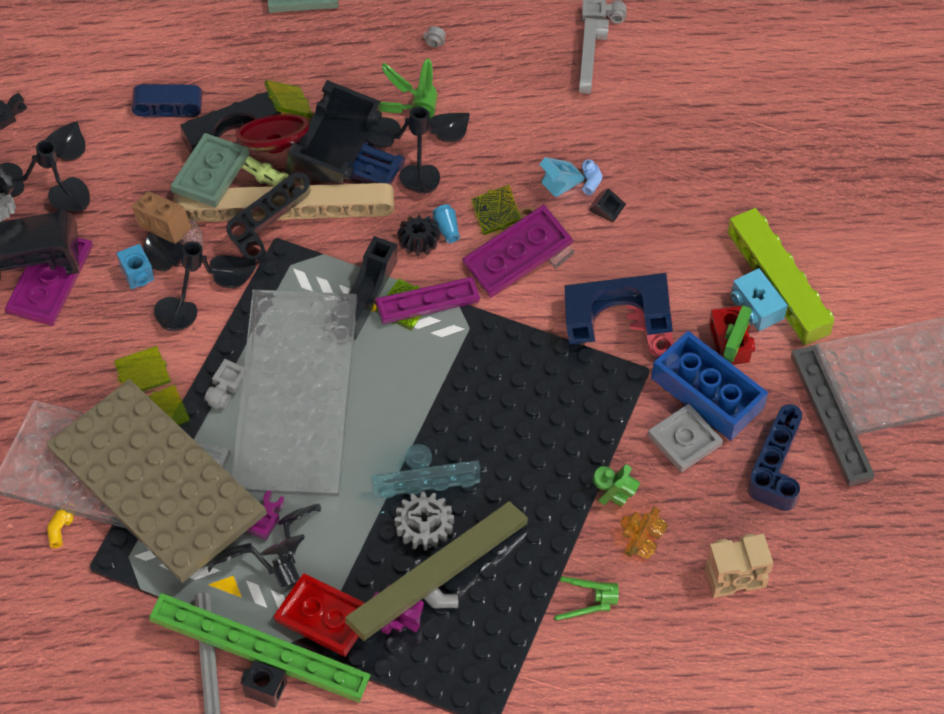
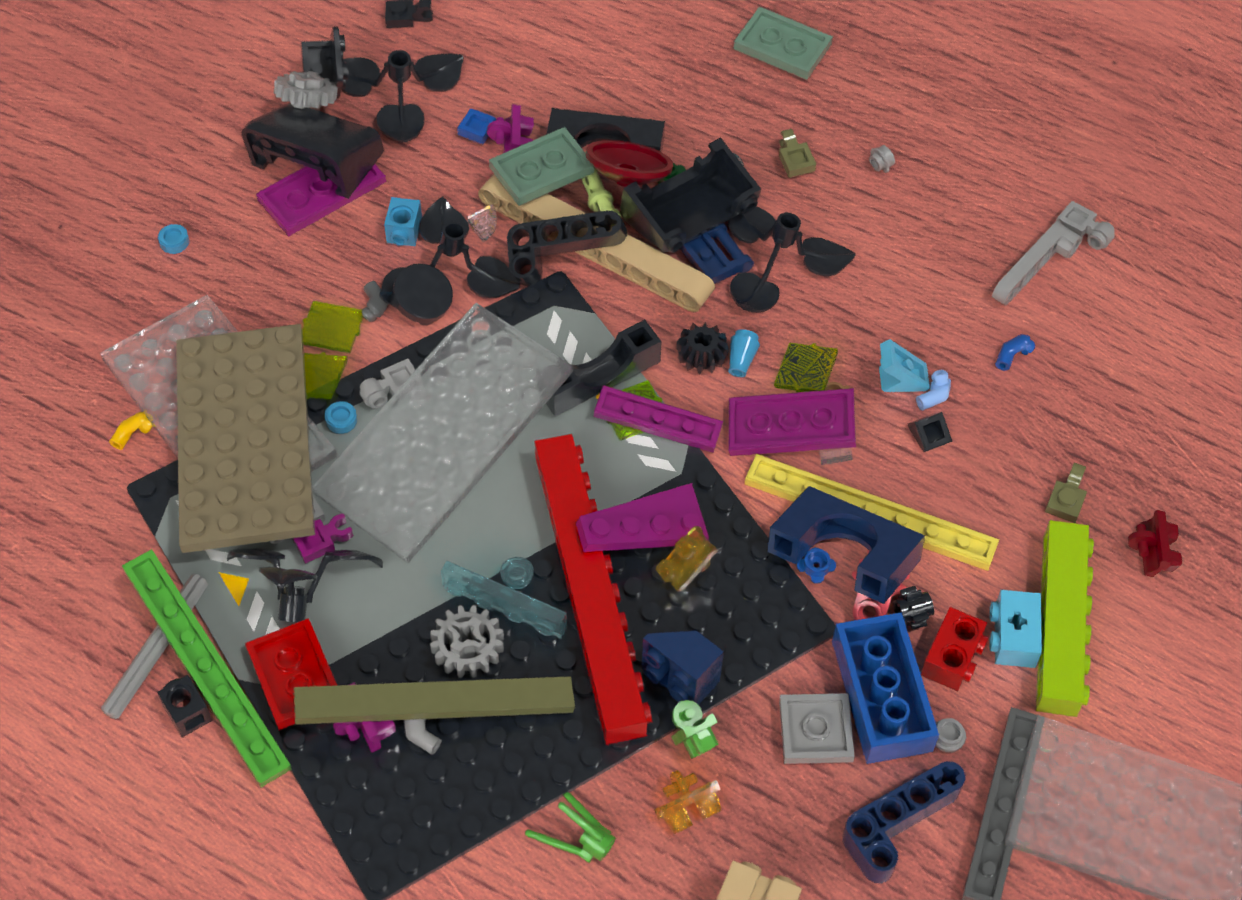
camera: 35 degrees right, 0 degrees up
(130, 168) = (475, 126): none -> blue plate
(160, 158) = (511, 129): none -> magenta hips
(161, 217) = (462, 187): medium nougat brick -> none
(165, 336) = (375, 305): none -> dark grey arm
(166, 100) = (563, 80): dark blue beam -> none
(193, 309) = (422, 293): none -> black tile
(207, 428) = (341, 417): none -> dark azure tile
(288, 98) = (679, 139): clear neon green piece -> none
(371, 65) = (795, 157): none -> olive plate
(424, 95) = (822, 209): bright green plant -> none
(475, 436) = (592, 594): none -> red brick
(481, 371) = (643, 523): none -> magenta wing
(526, 378) = (687, 559): none -> clear yellow hips
(552, 290) = (939, 534): none -> light yellow tile
(578, 446) = (682, 663): none -> dark blue slope
(605, 329) = (820, 557): none -> blue plate
(620, 115) = (1008, 350): none -> blue arm
(687, 321) = (915, 607): none -> black gear
(724, 199) = (1067, 497): none -> olive plate
(736, 333) = (952, 648): bright green plate -> none
(772, 389) = (951, 735): none -> light grey plate
(798, 195) = (1153, 542): none -> dark red hips

